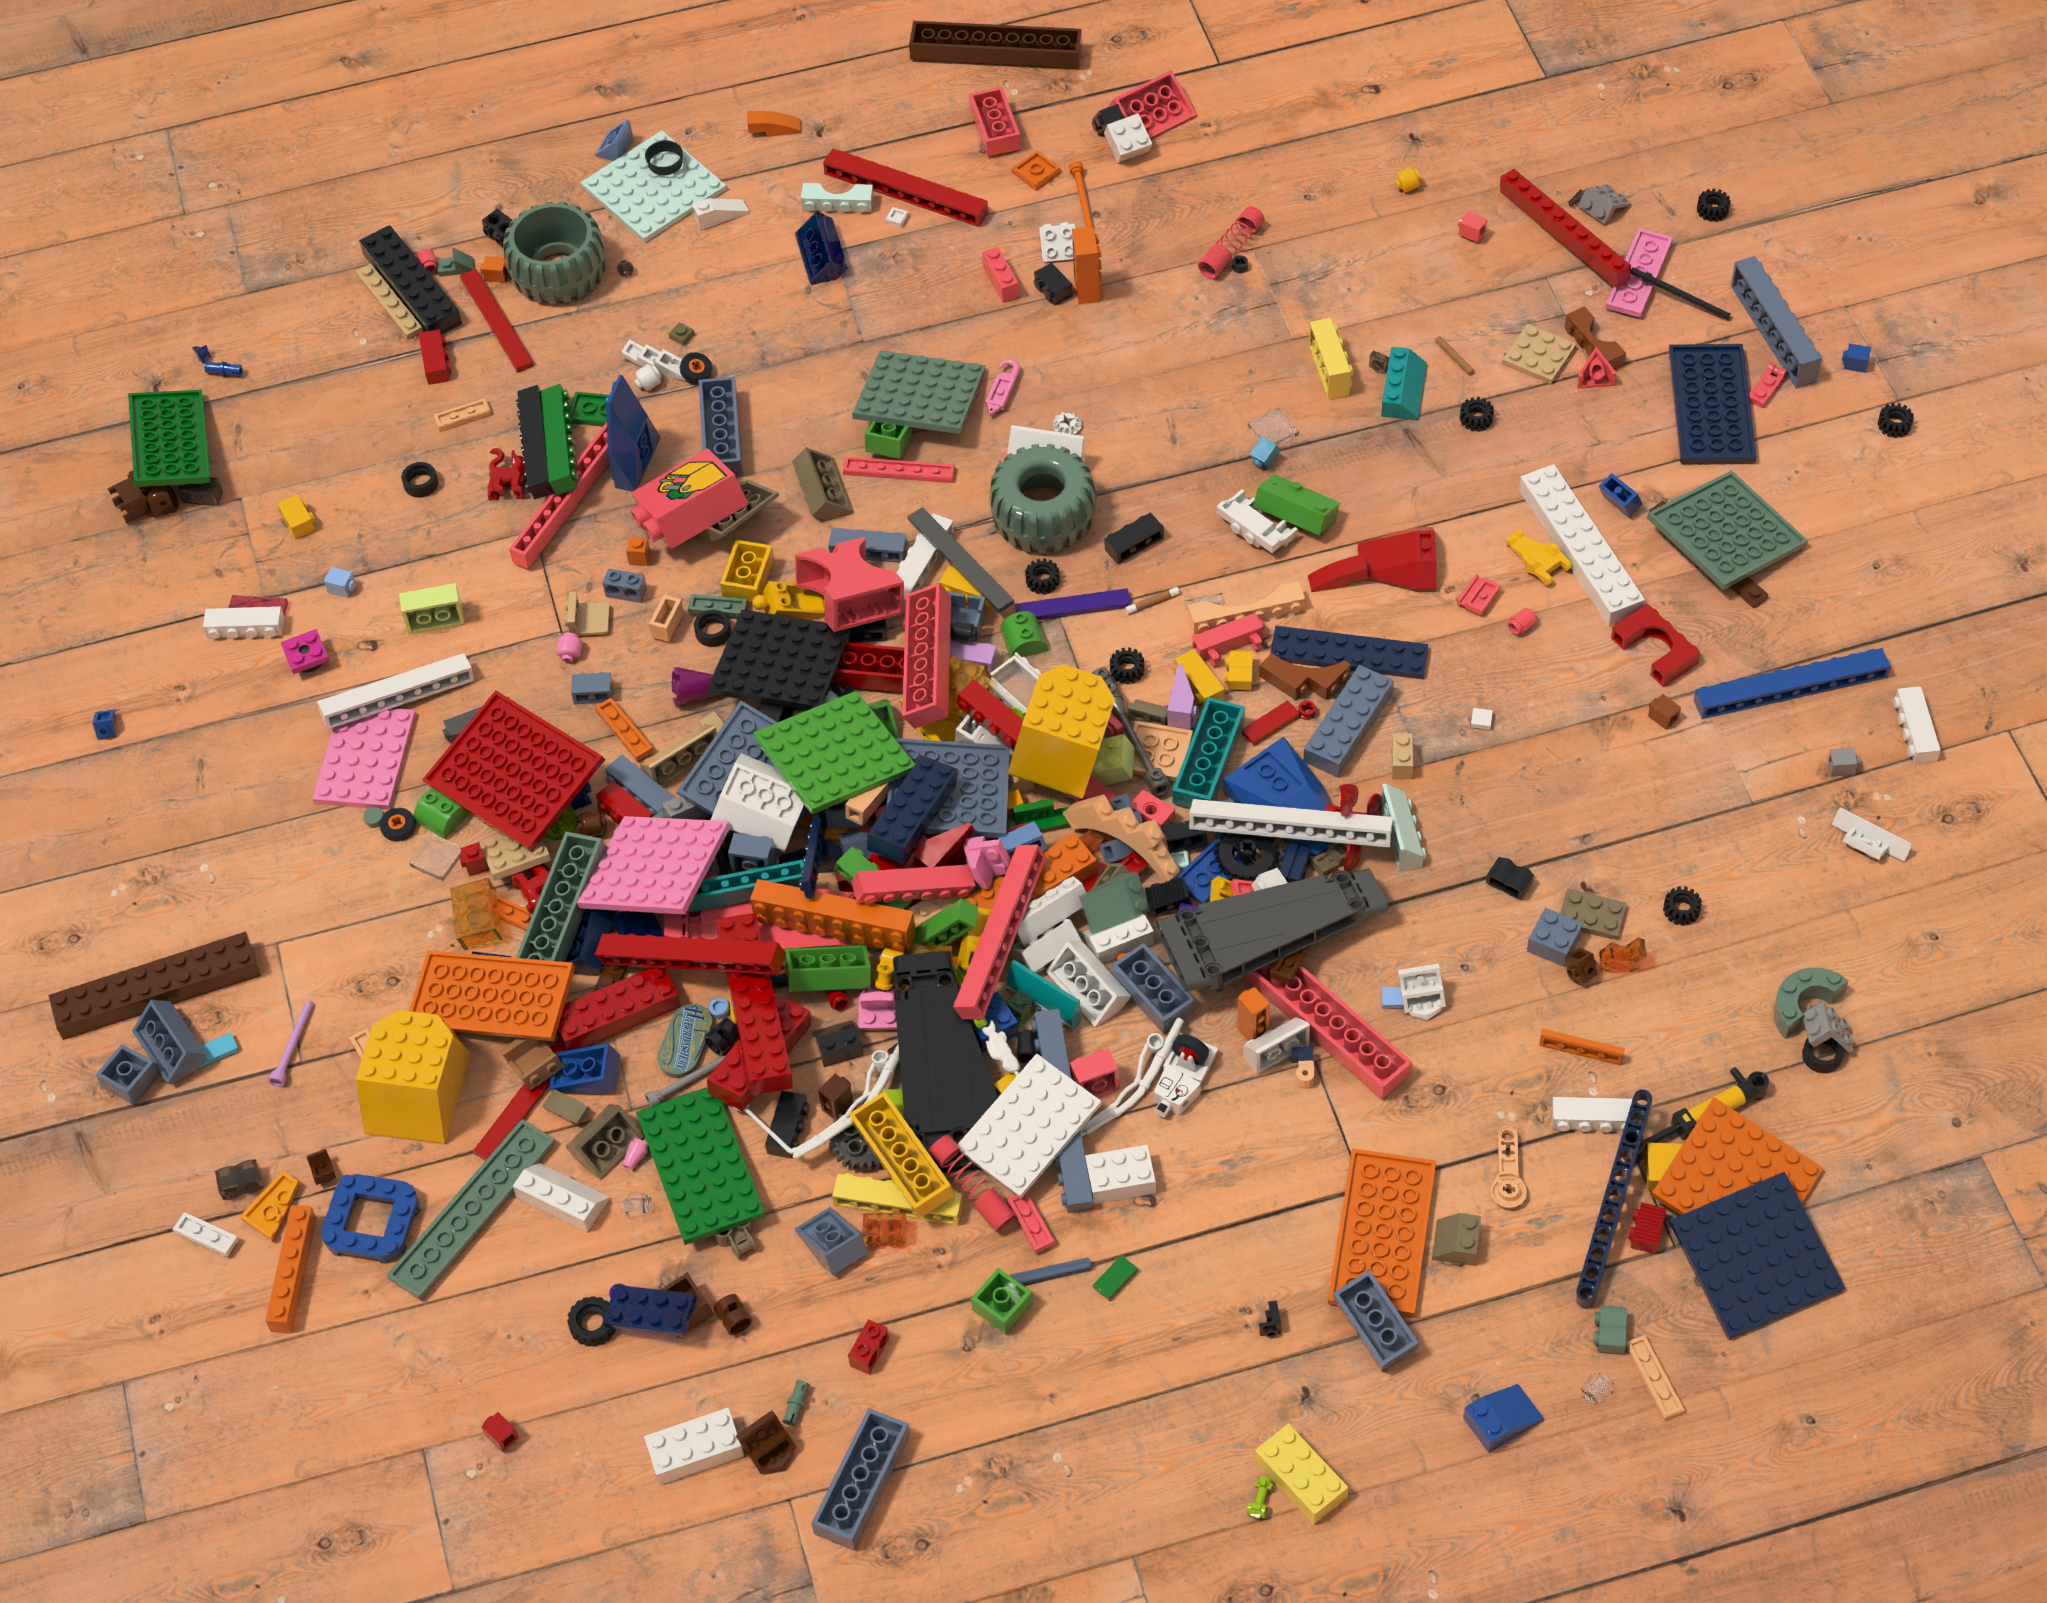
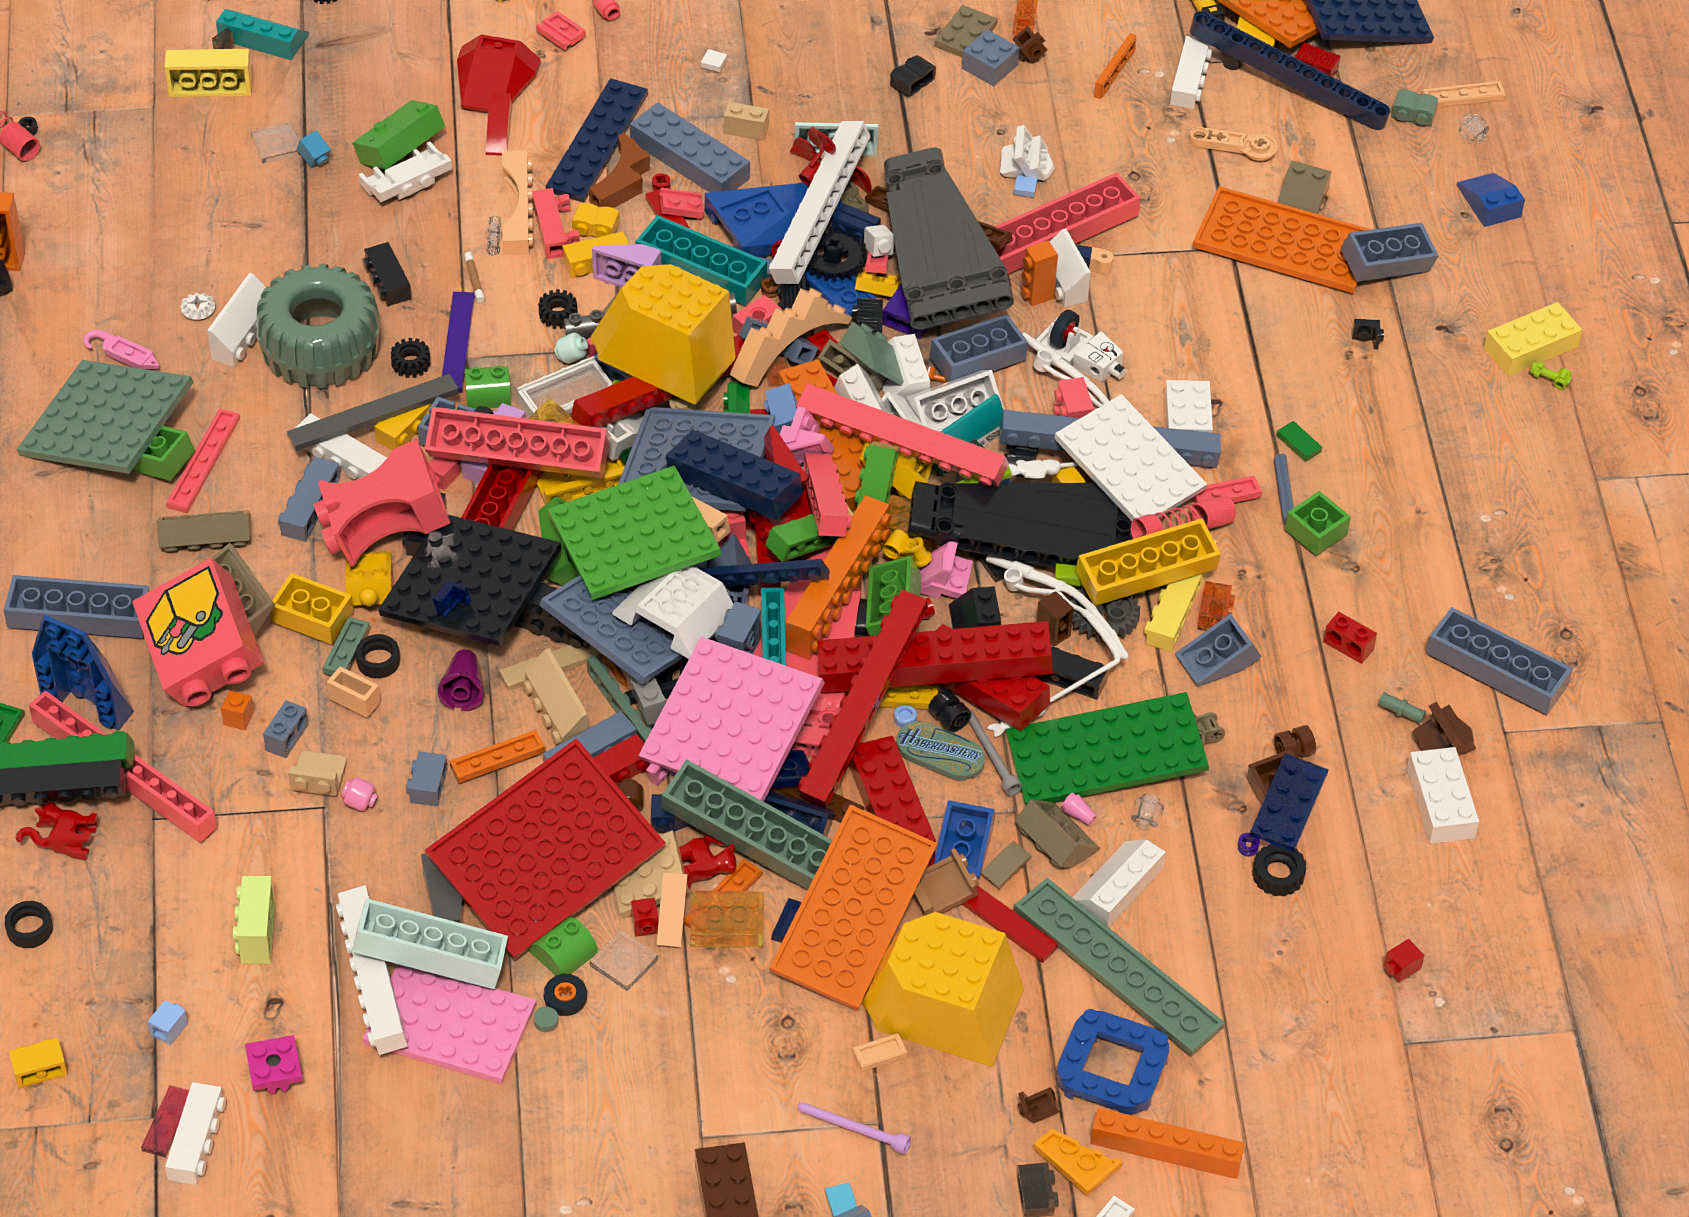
camera: 85 degrees left, 5 degrees down
(410, 715) = (430, 943): none -> light aqua brick
(478, 870) = (672, 909): none -> light nougat tile
(742, 643) = (449, 596): none -> clear blue bracket
(1279, 724) = (681, 203): none -> coral plate

